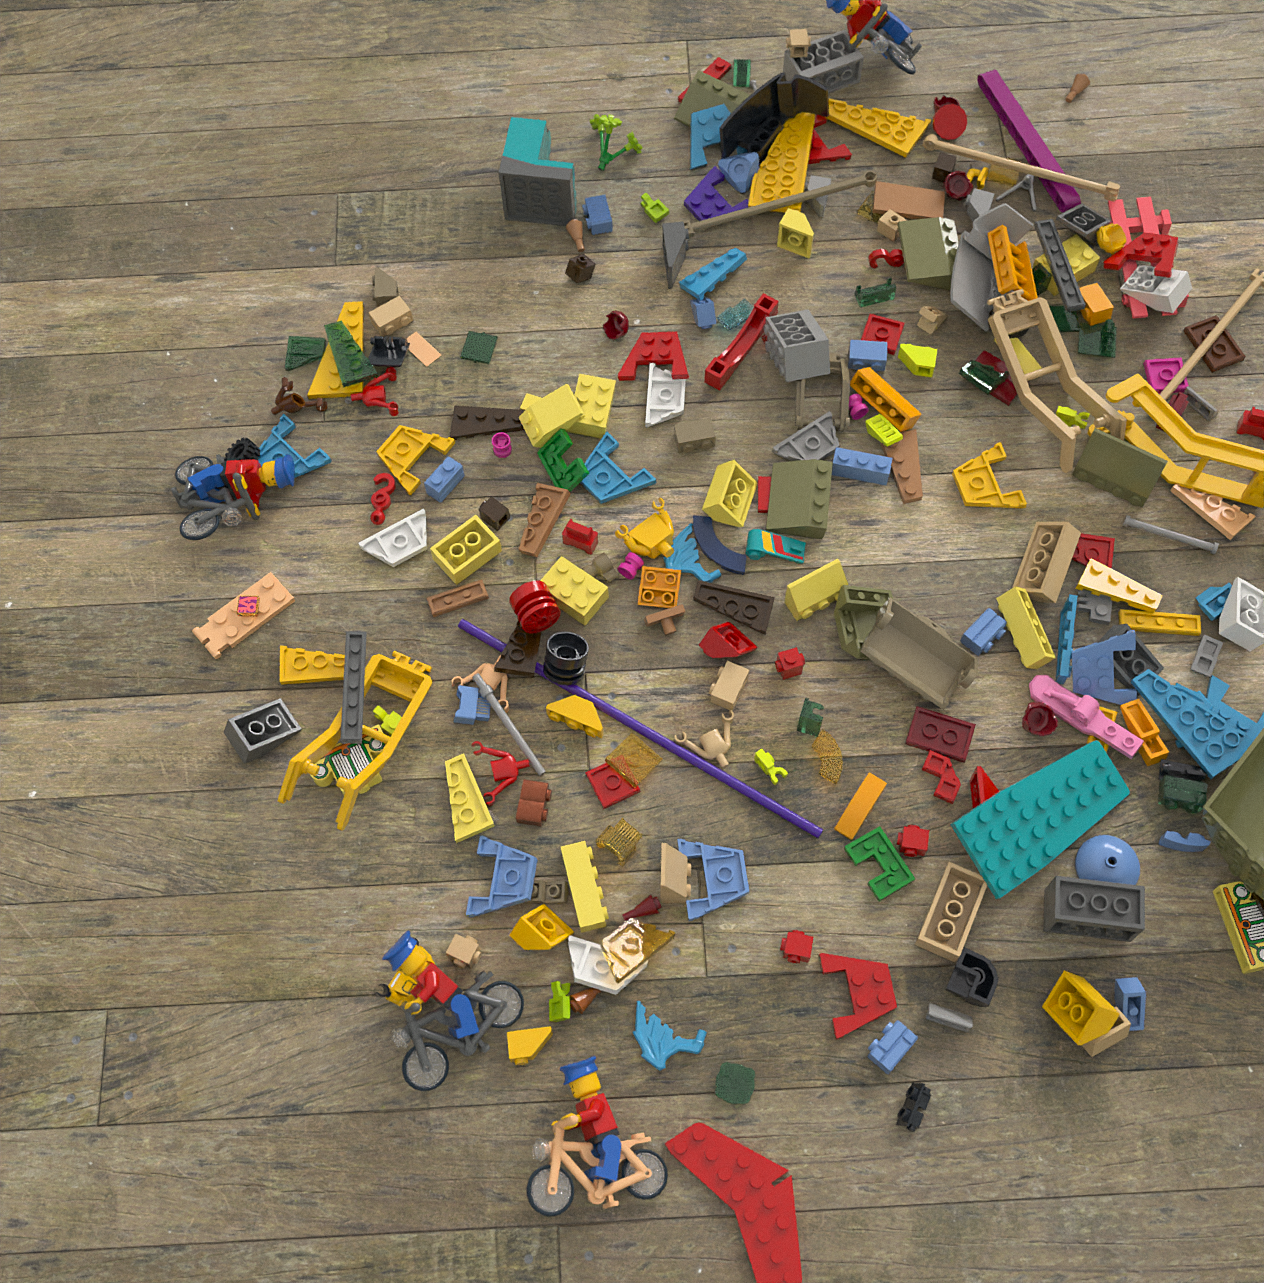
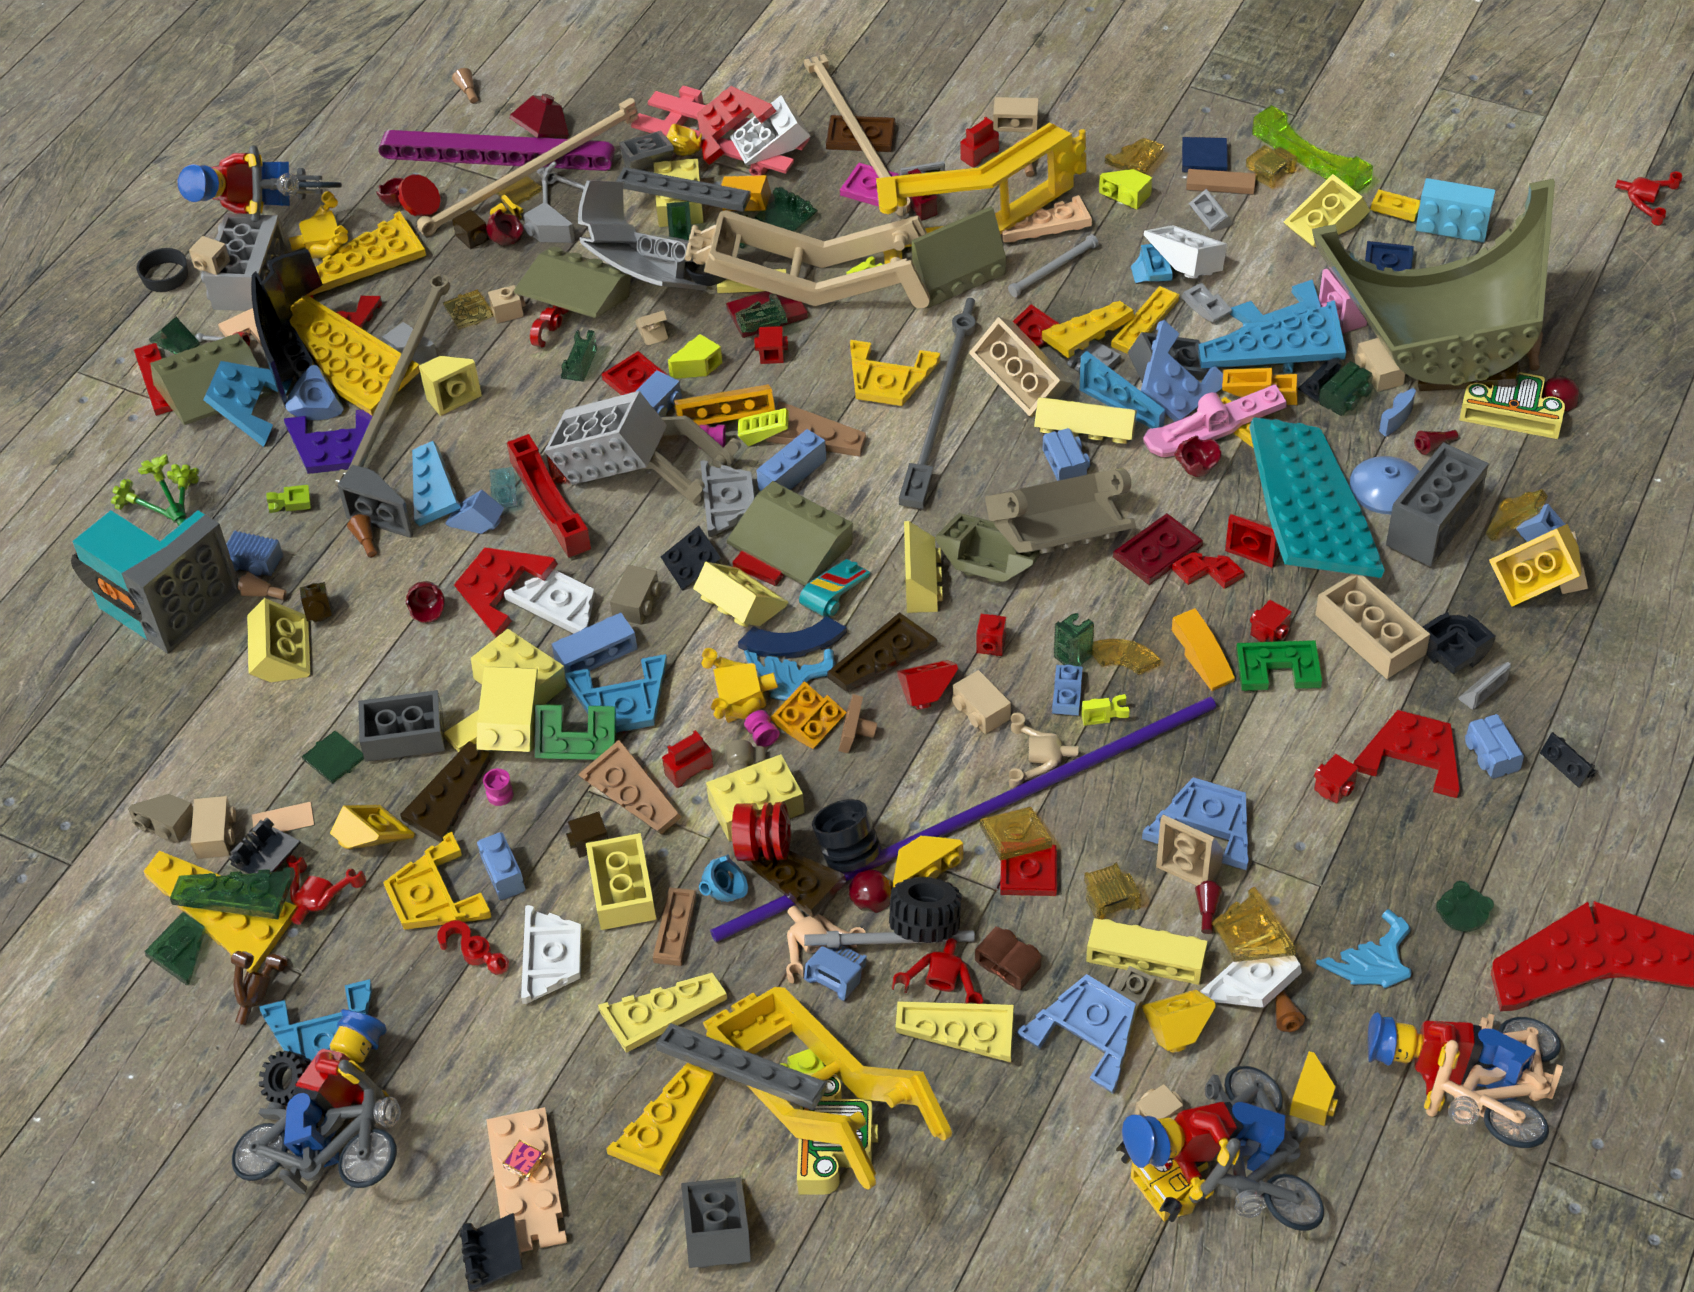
camera: 60 degrees left, 15 degrees down
(185, 622) = (490, 1251): none -> black hinge
(389, 621) = (649, 1015): none -> light yellow wing
(435, 395) = (368, 826): none -> yellow slope
(497, 607) = (718, 883): none -> dark azure helmet
(513, 367) = (401, 725): none -> dark grey brick
(525, 743) = (925, 909): none -> black tyre
(539, 269) = (277, 642): none -> light yellow slope
(540, 694) = (870, 890): none -> dark red hair
(560, 1004) = (1283, 1038): lime plate -> none
(639, 436) = (595, 644): none -> medium blue brick
(654, 258) = (361, 528): none -> dark orange cone
(746, 451) = (689, 556): none -> black hinge
(775, 735) = (1067, 690): none -> medium blue slope
(790, 18) = (157, 257): none -> black tyre
(880, 89) = (321, 231): none -> yellow torso
(906, 548) = (920, 475): none -> dark grey bar
(908, 201) = (491, 272): medium nougat tile -> none
(963, 397) = (771, 345): none -> red brick
(1011, 264) = (647, 222): light orange fence -> none
(1072, 147) = (541, 117): none -> dark red slope
(1132, 971) = (1516, 511): none -> clear yellow wing
(1171, 878) = (1429, 440): none -> dark red cone

